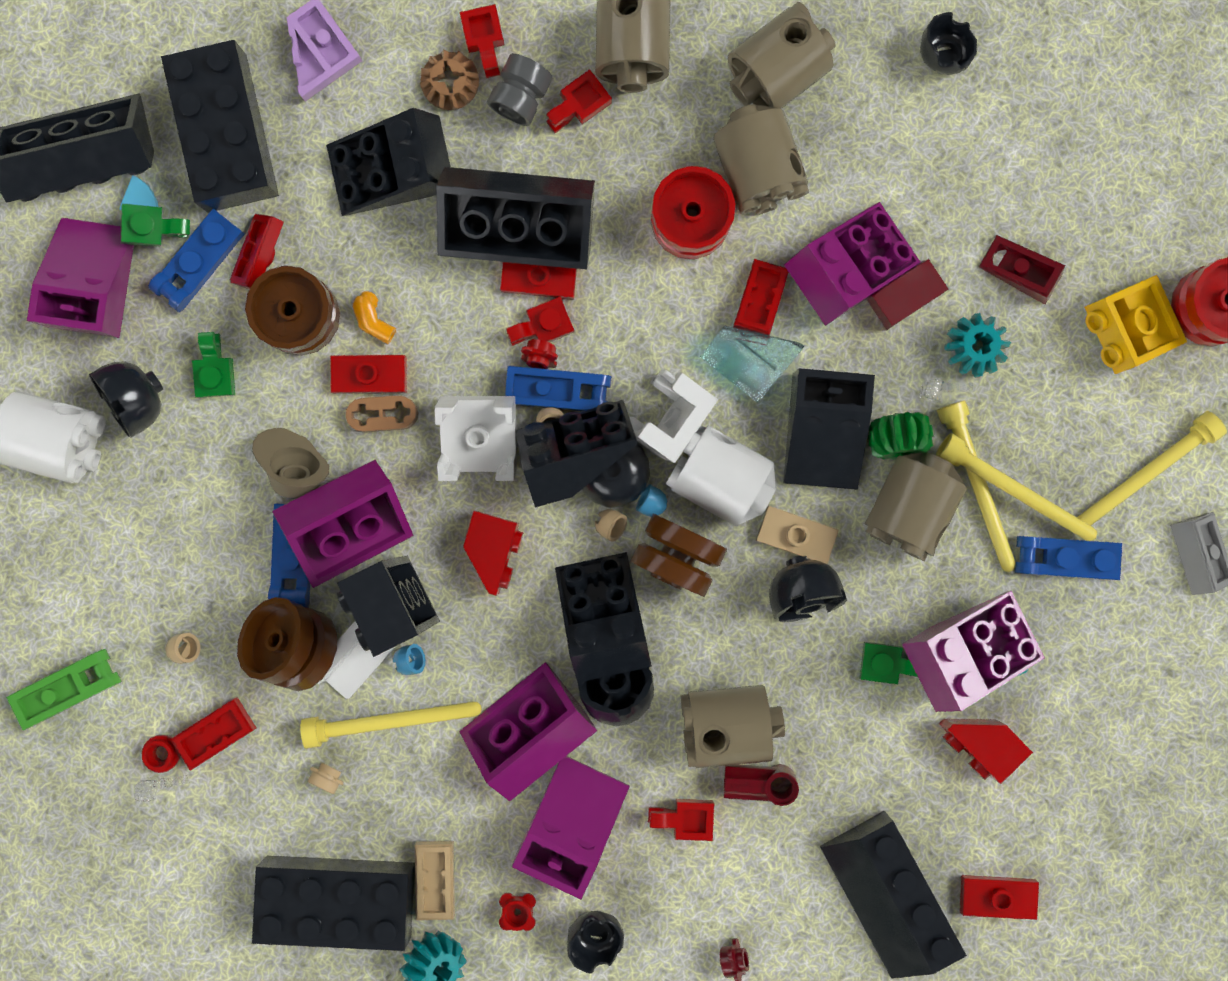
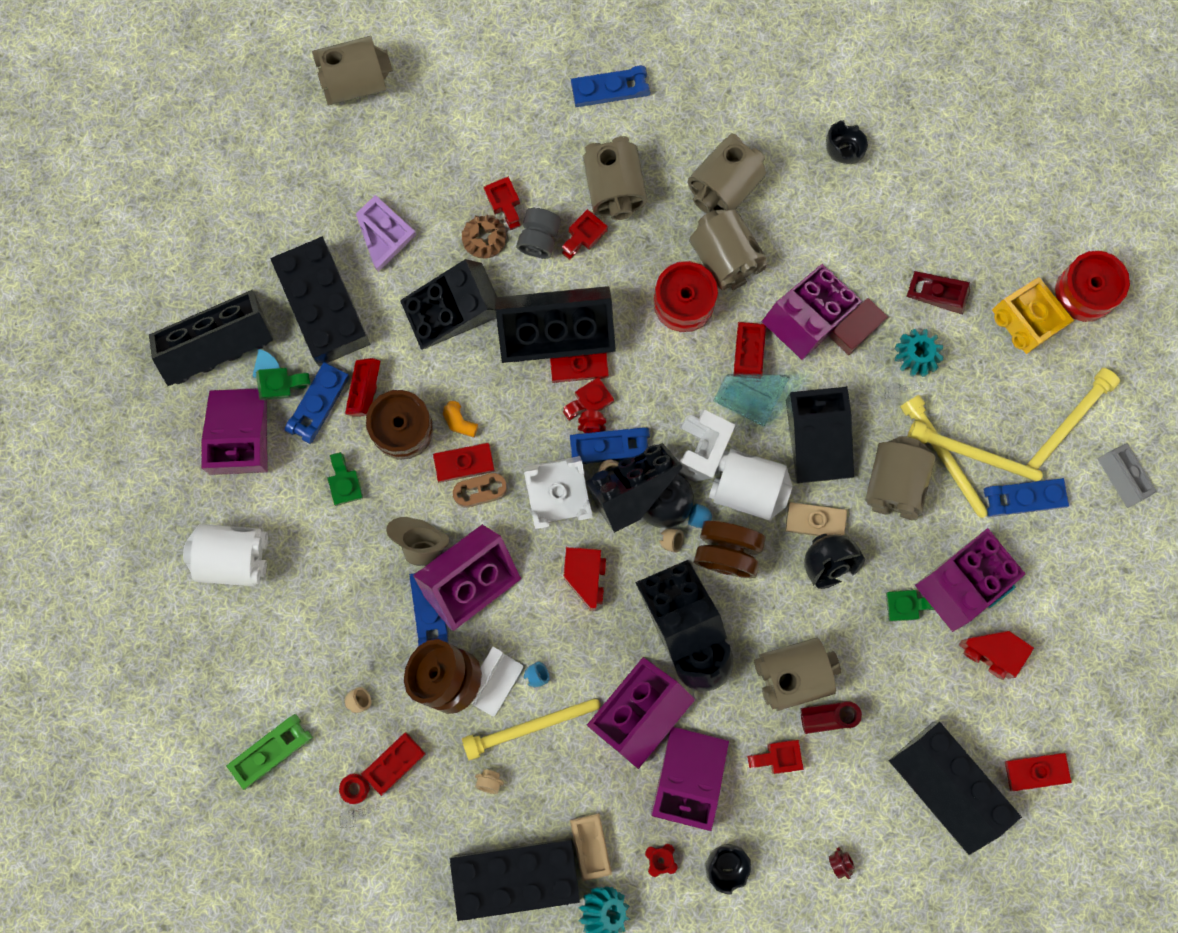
camera: 10 degrees left, 10 degrees down
(129, 395) = (284, 511): black cylinder -> none
(387, 604) = (515, 617): black brick -> none
(900, 435) = (876, 428): green gear -> none

